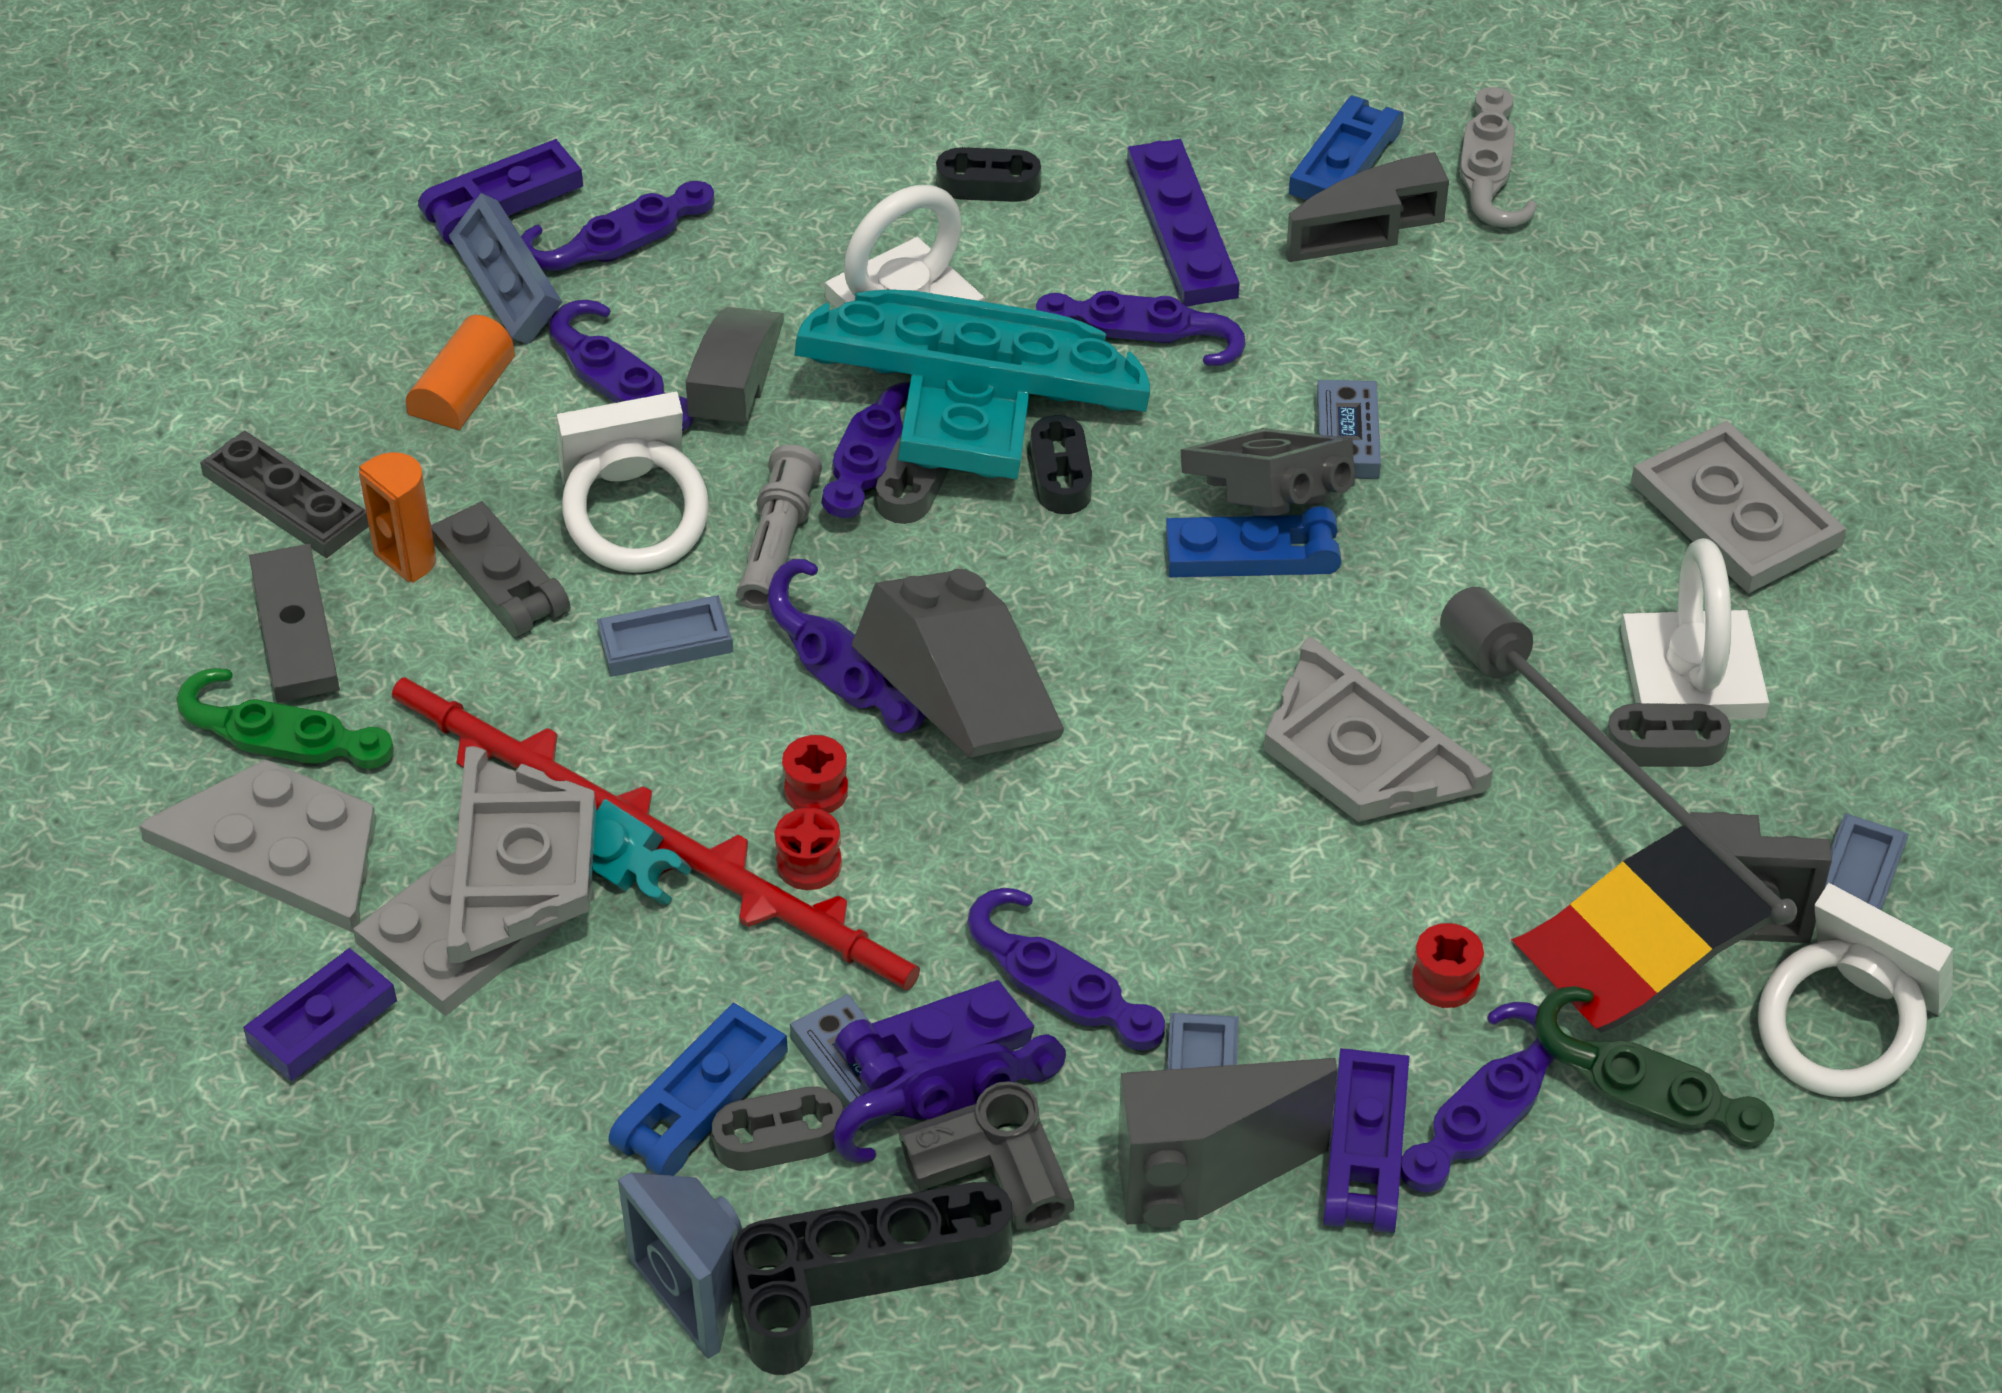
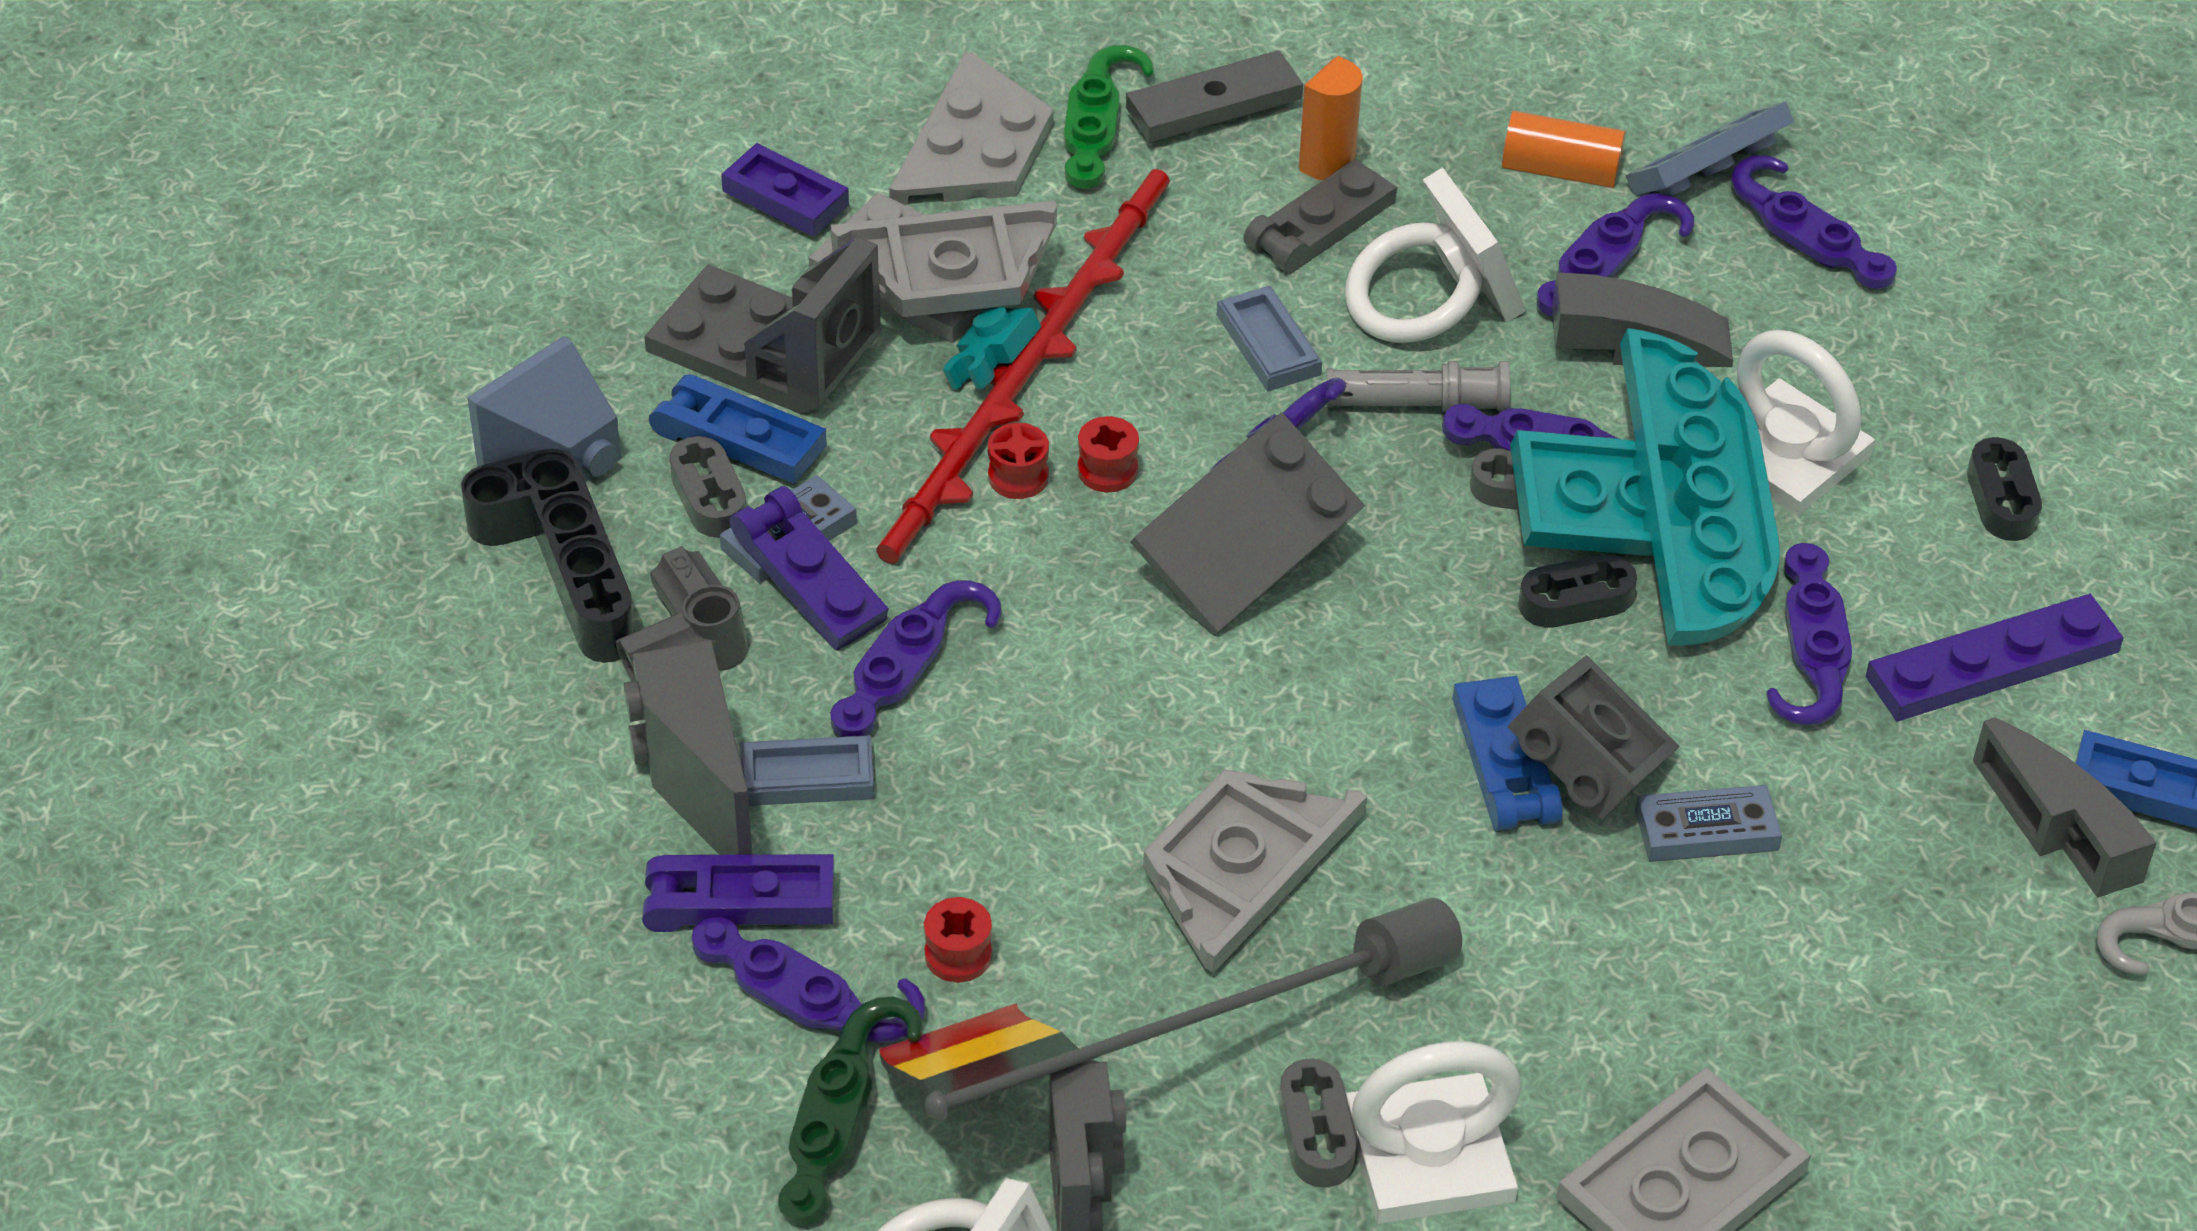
camera: 80 degrees right, 0 degrees up
(285, 493) = (1392, 58): dark grey tile -> none
(513, 181) = (1835, 134): dark purple plate -> none
(593, 1013) = (772, 342): none -> dark grey bracket
(946, 1085) = (742, 563): dark purple piece -> none

